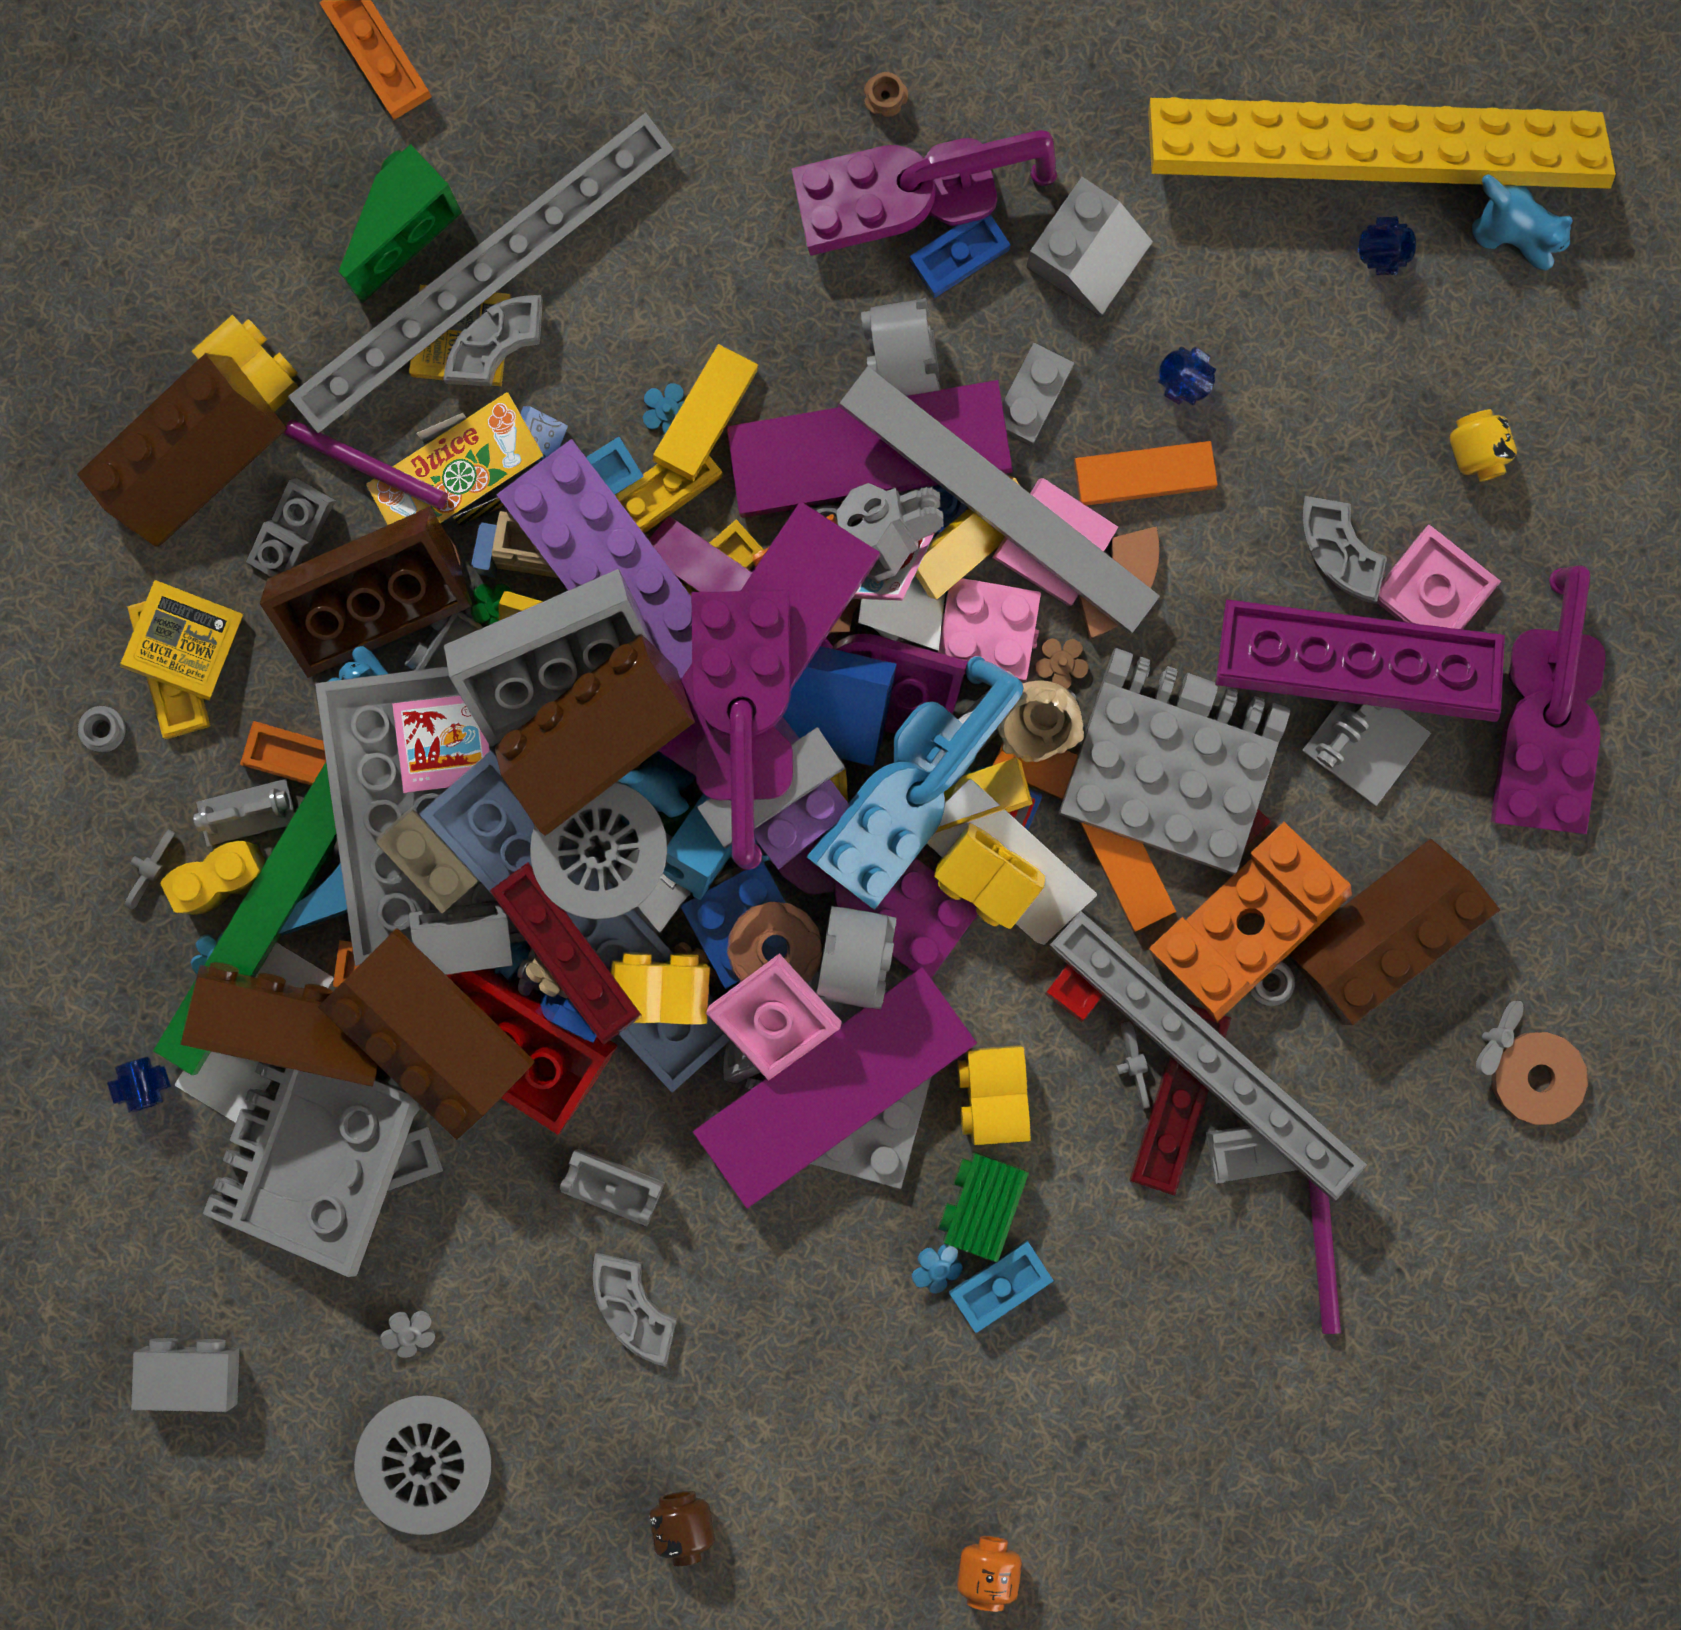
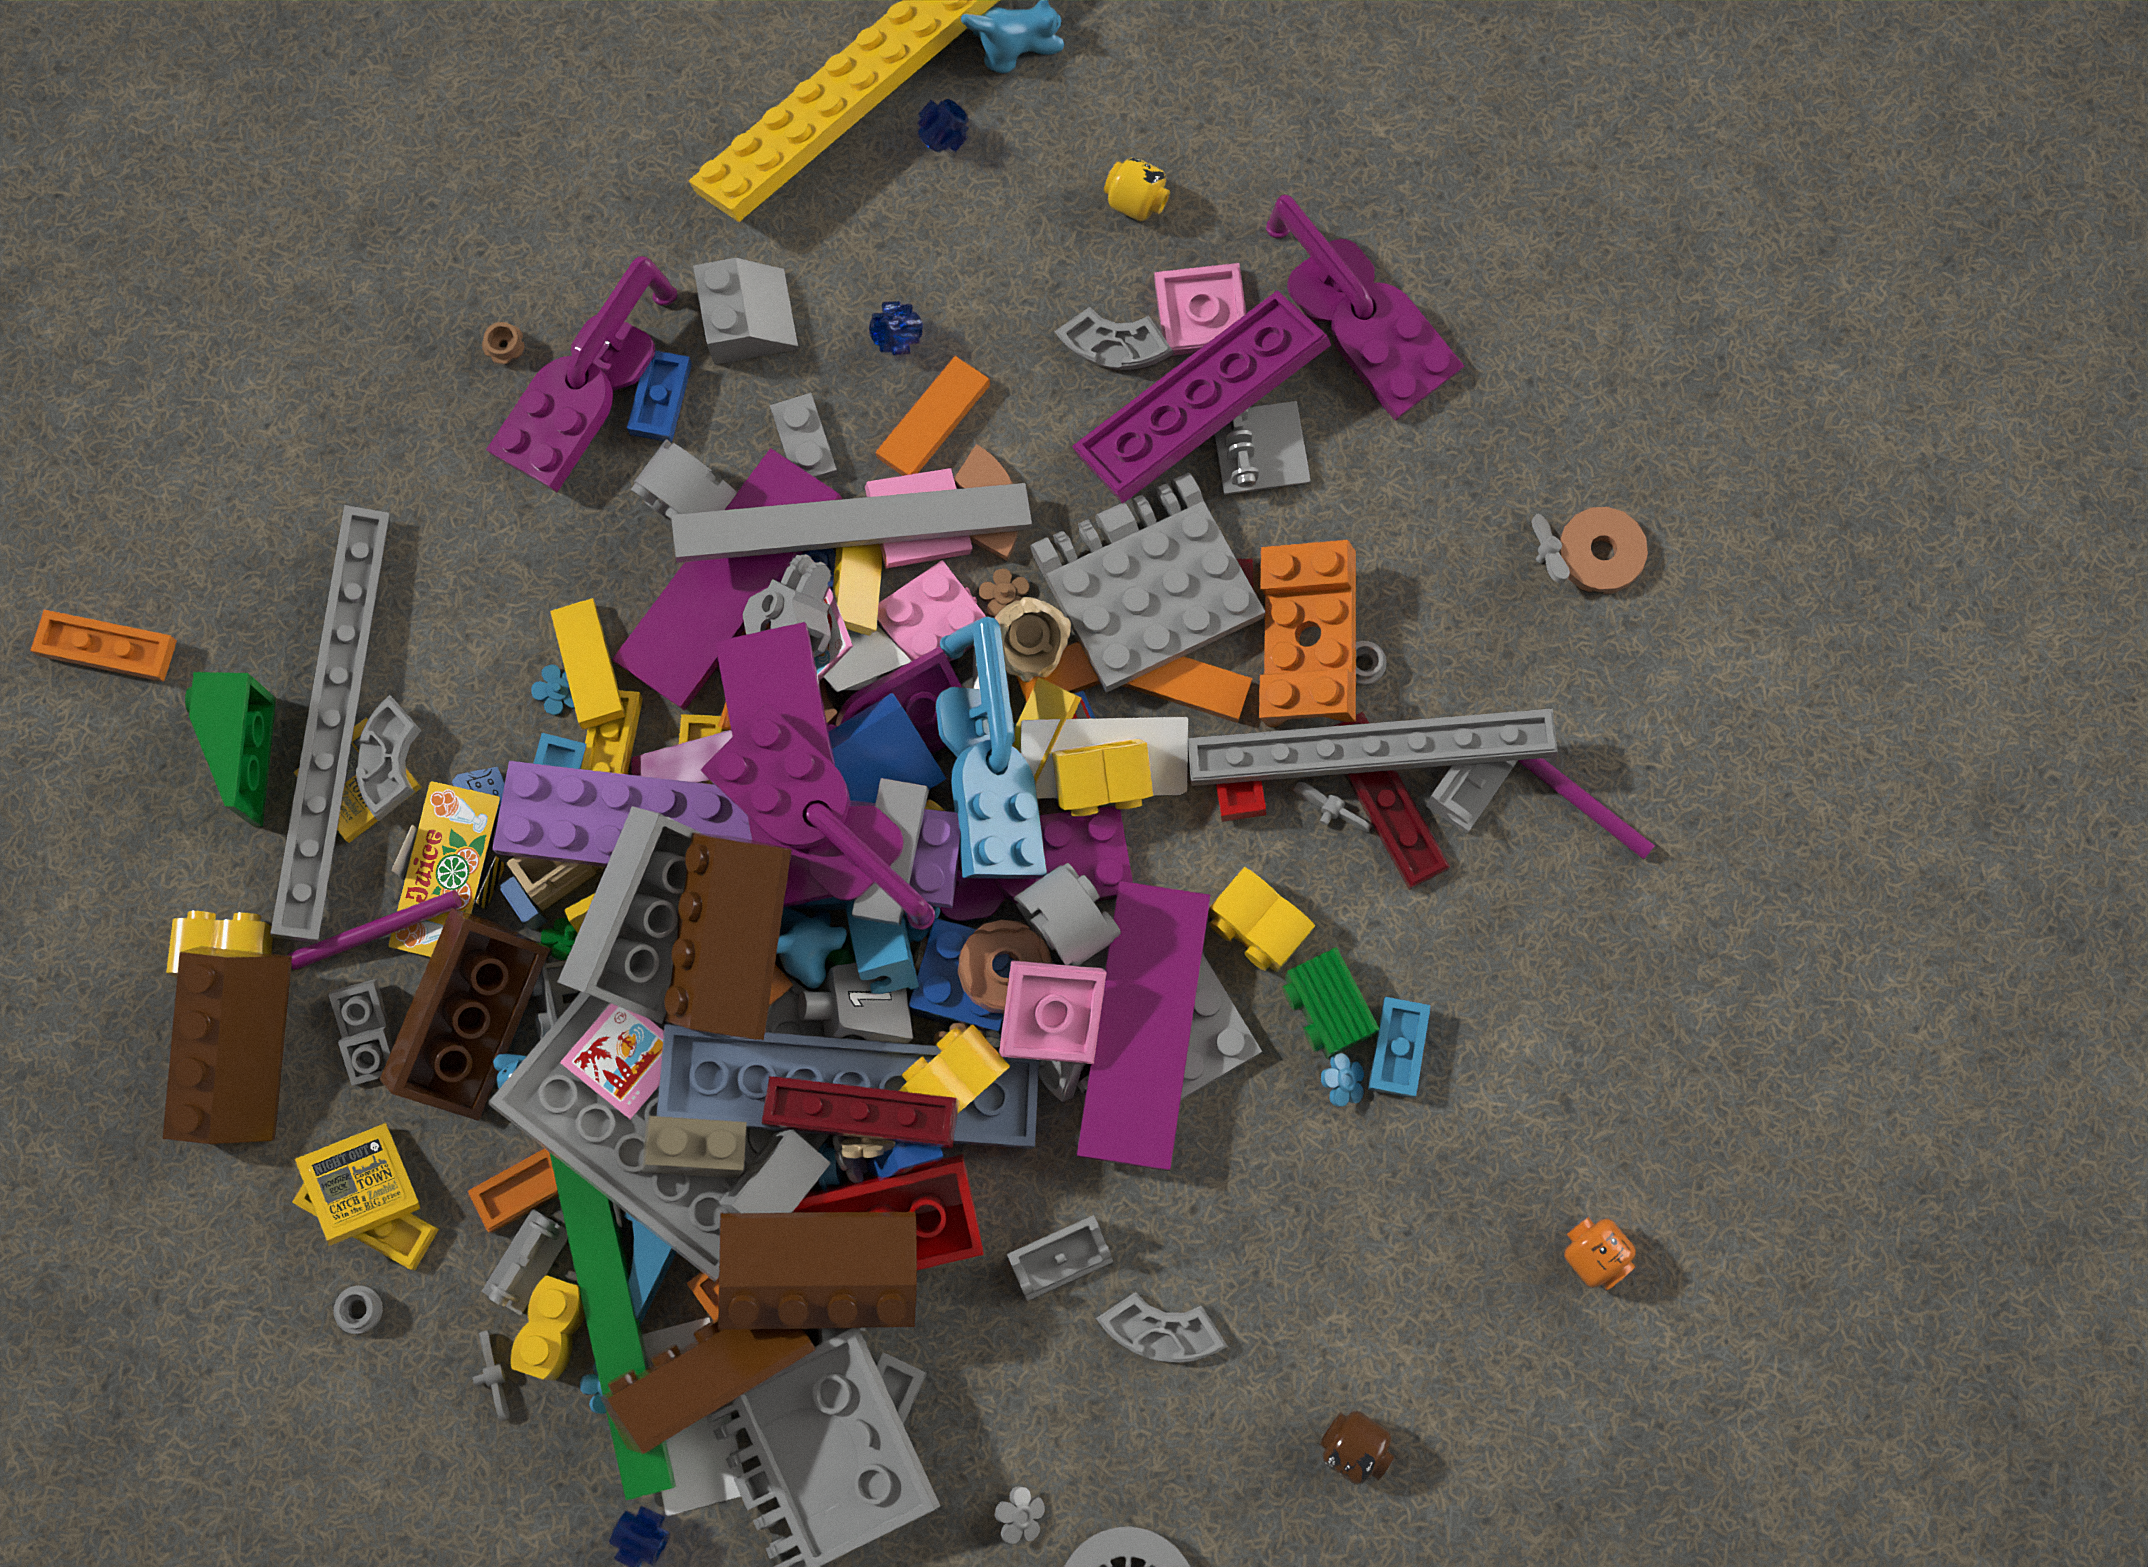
camera: 45 degrees left, 10 degrees down
(602, 904) = (864, 1024): light grey piece -> none
(1392, 931) = (1407, 550): reddish brown slope -> none

